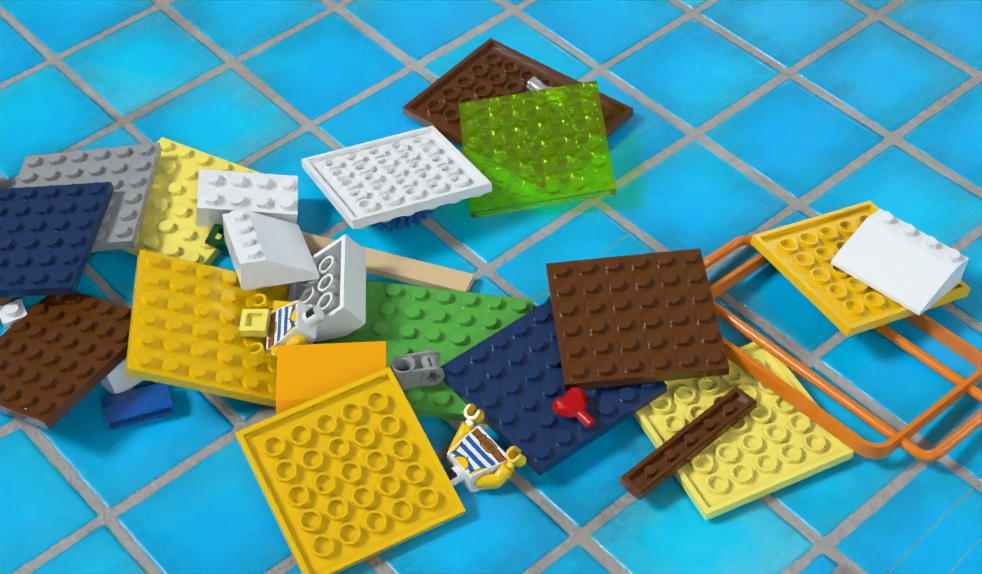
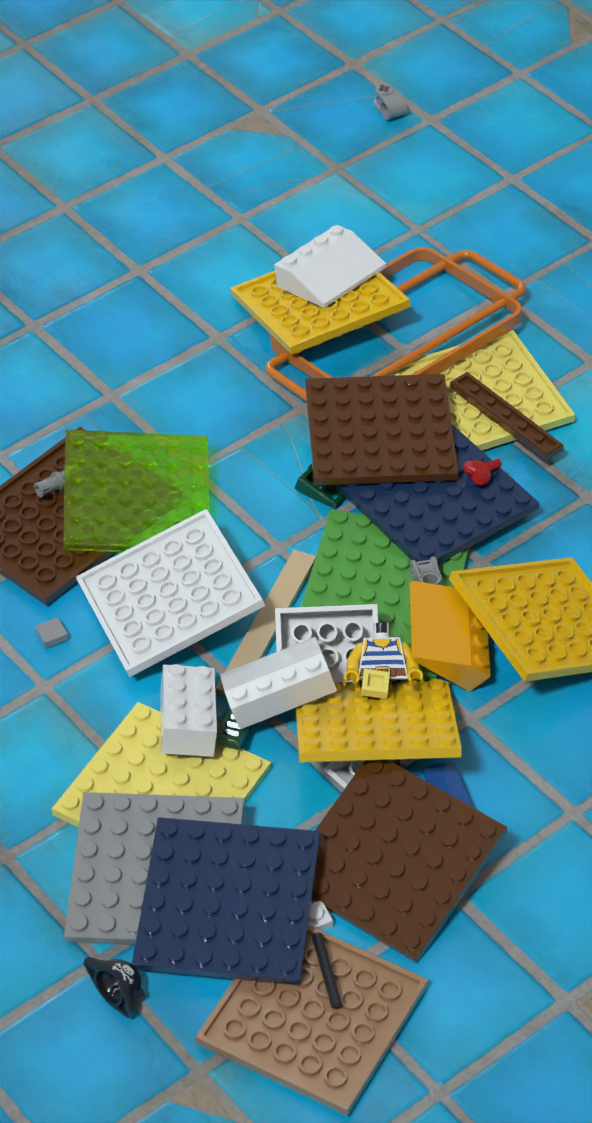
camera: 90 degrees left, 0 degrees up
(368, 120) = (51, 633): none -> light grey tile
(477, 459) = (518, 544): torso -> none

